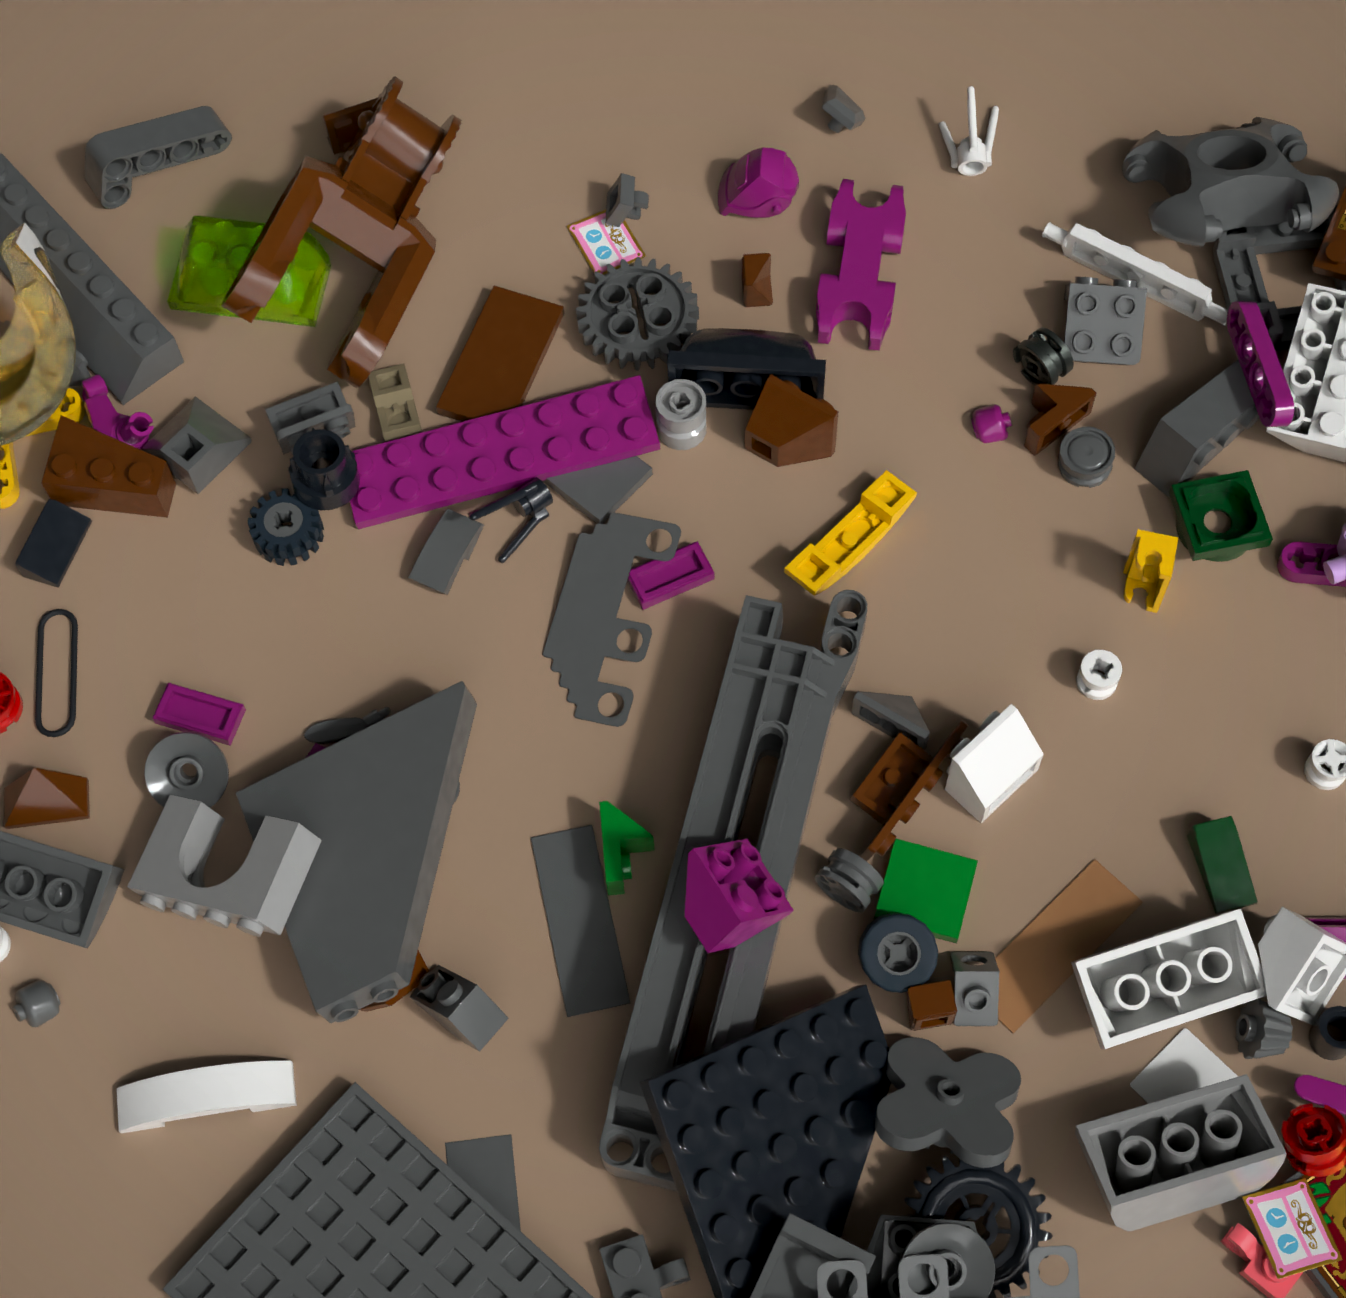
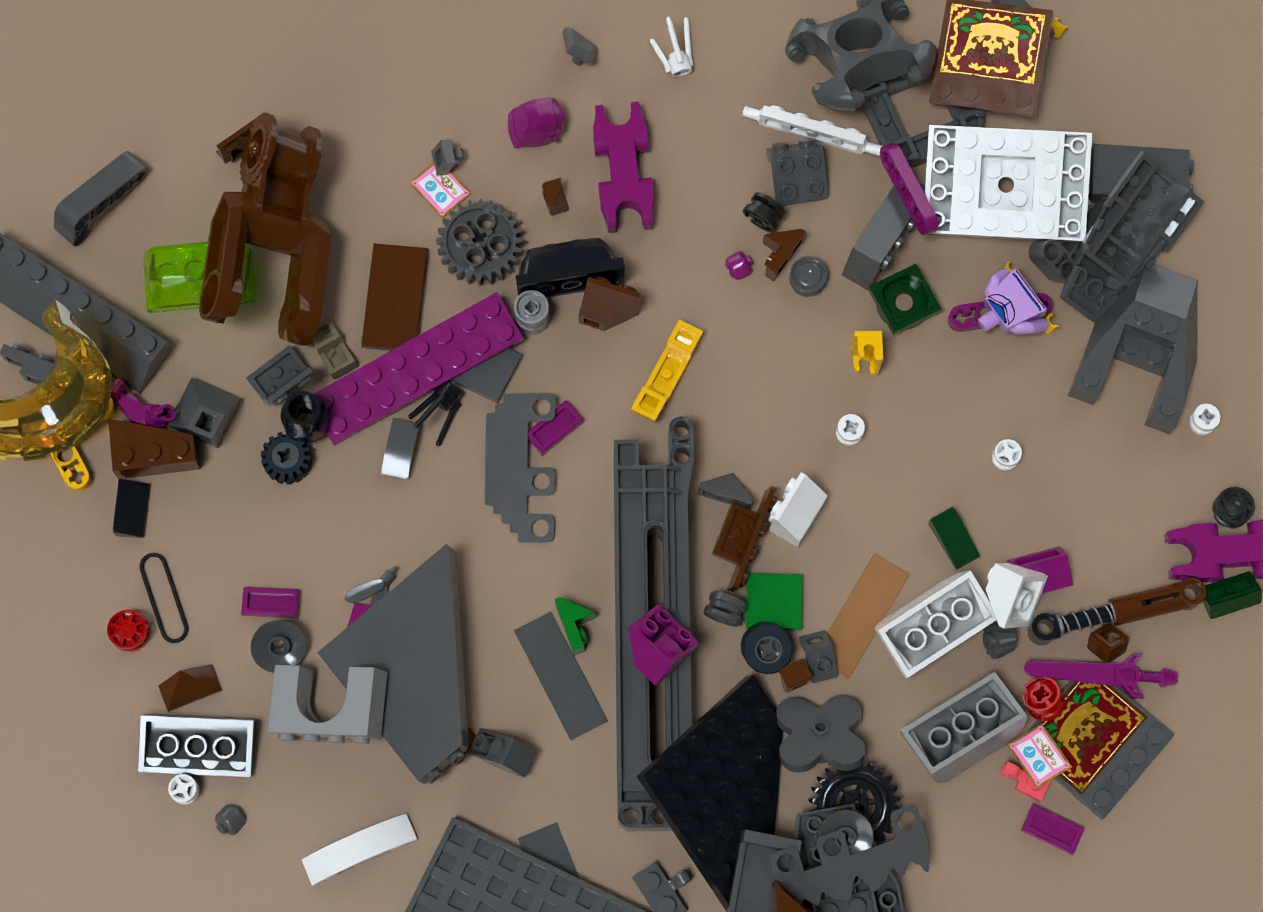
camera: 20 degrees left, 10 degrees up
(1179, 1069) = (956, 675): white sticker -> none

